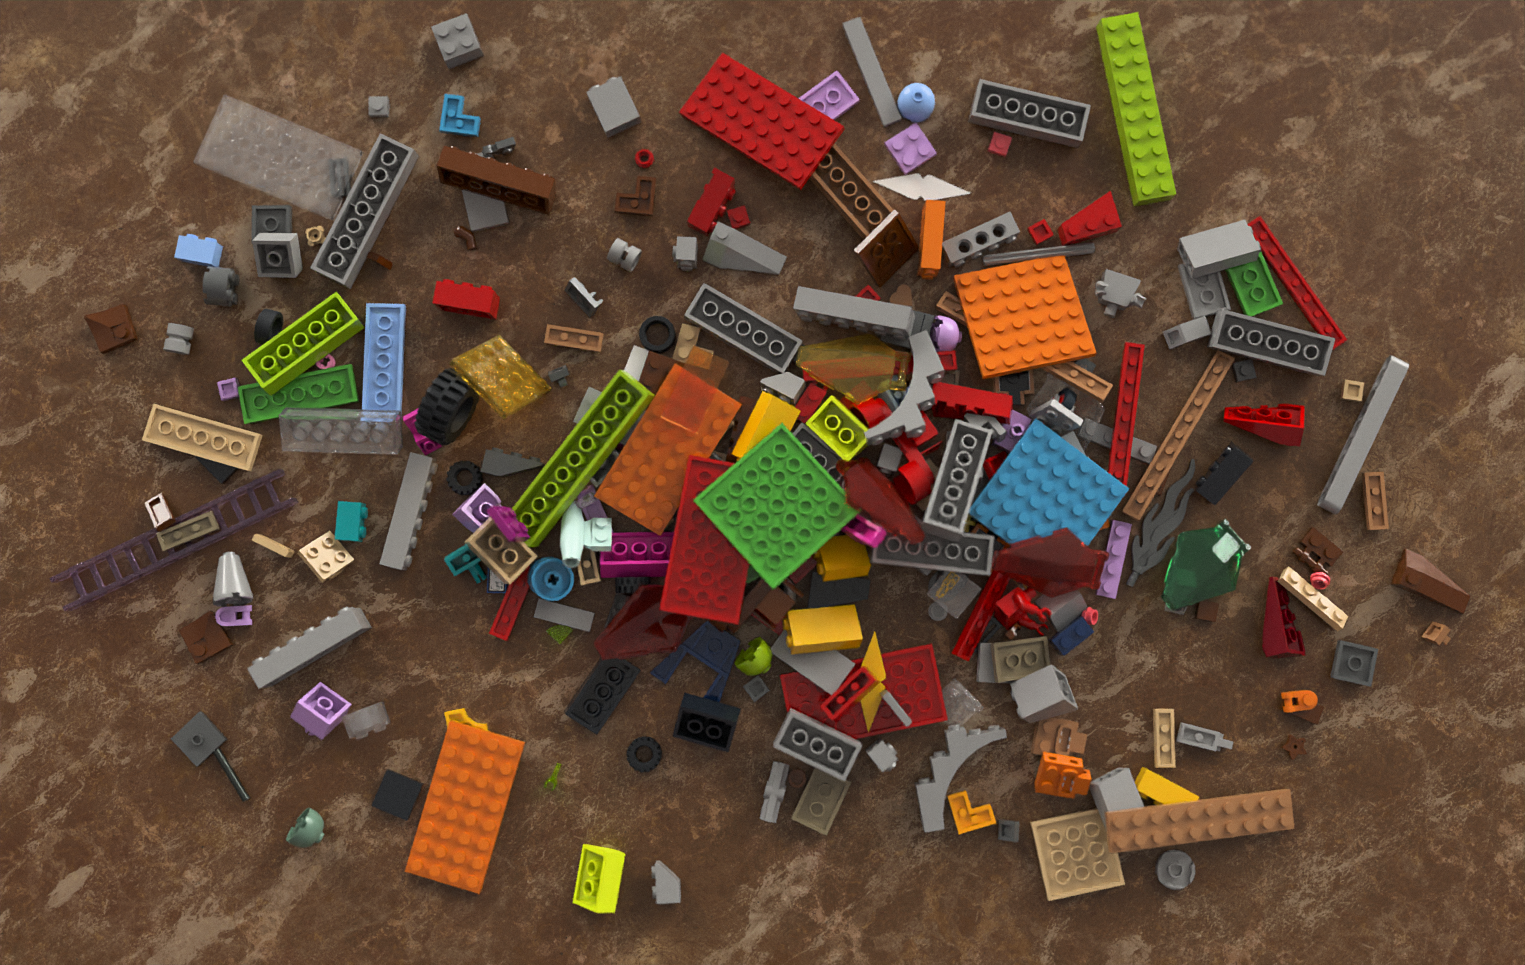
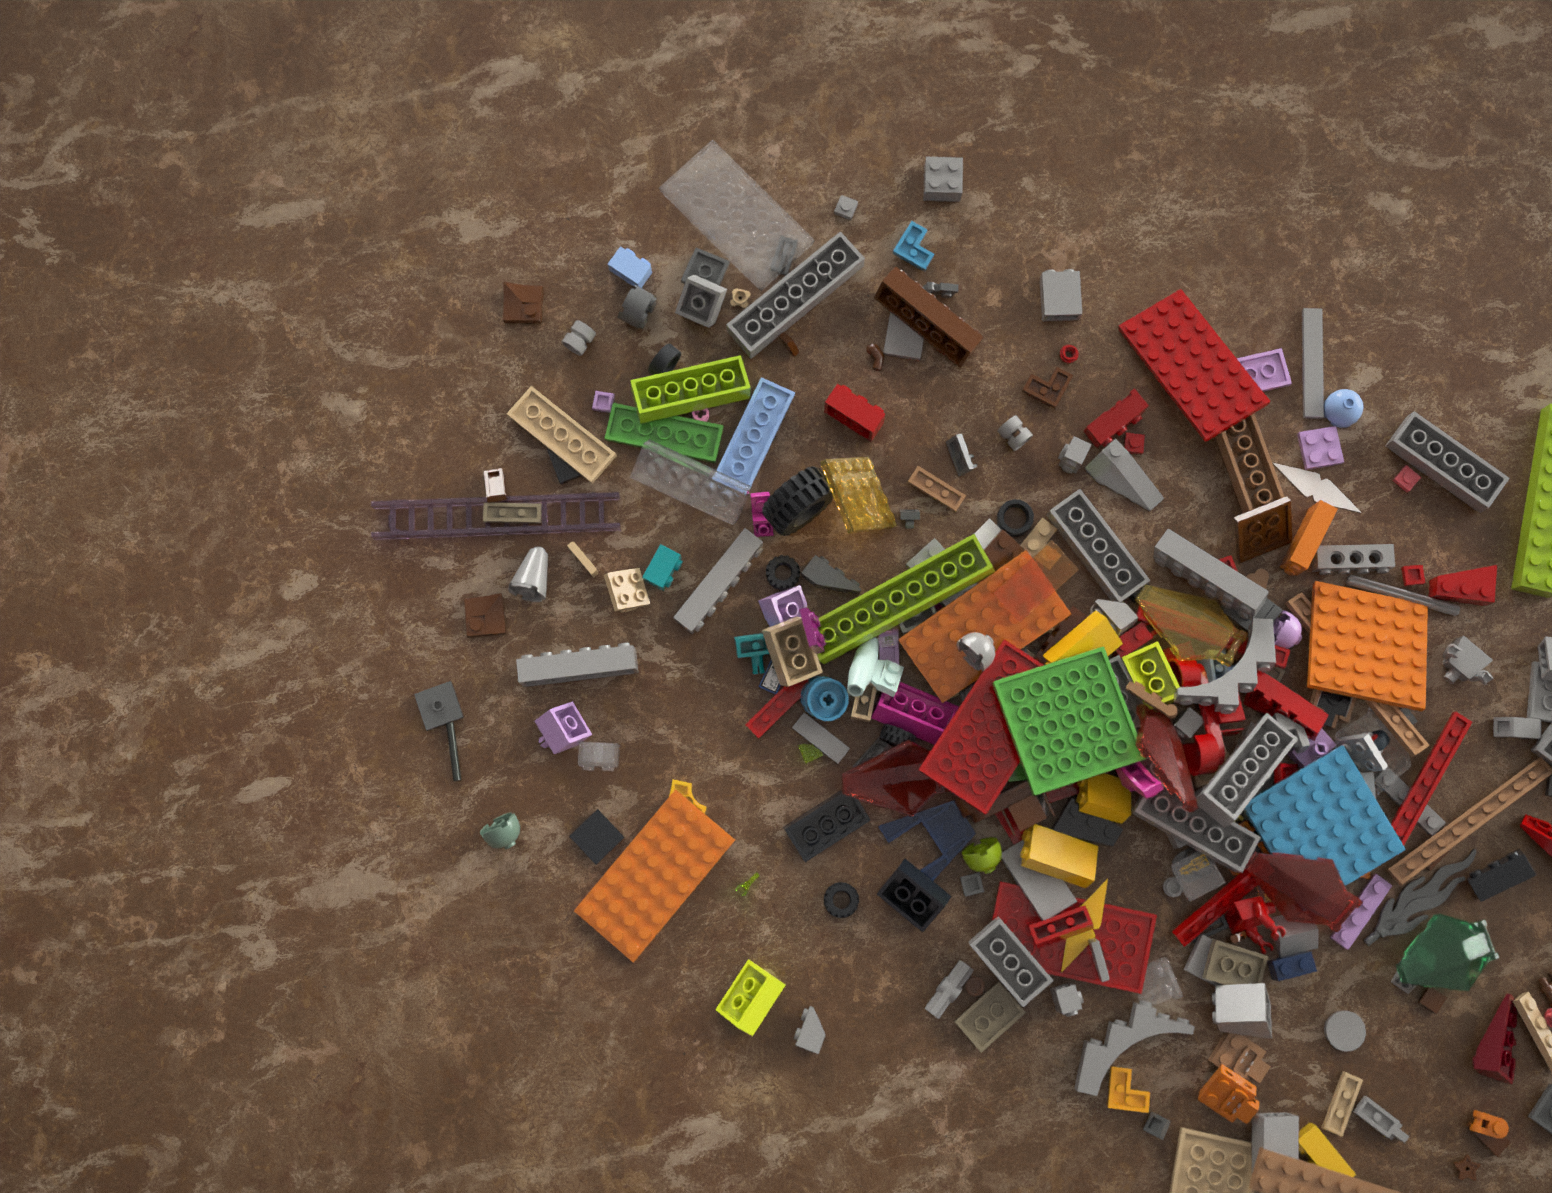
camera: 25 degrees right, 5 degrees down
(228, 615) = (513, 605): lavender plate -> none
(669, 475) = (978, 650): none -> light grey cylinder
(848, 451) = (1151, 699): none -> medium nougat plate
(1090, 616) = (1318, 955): coral plate -> none
(1141, 672) = (1345, 1030): none -> light grey tile

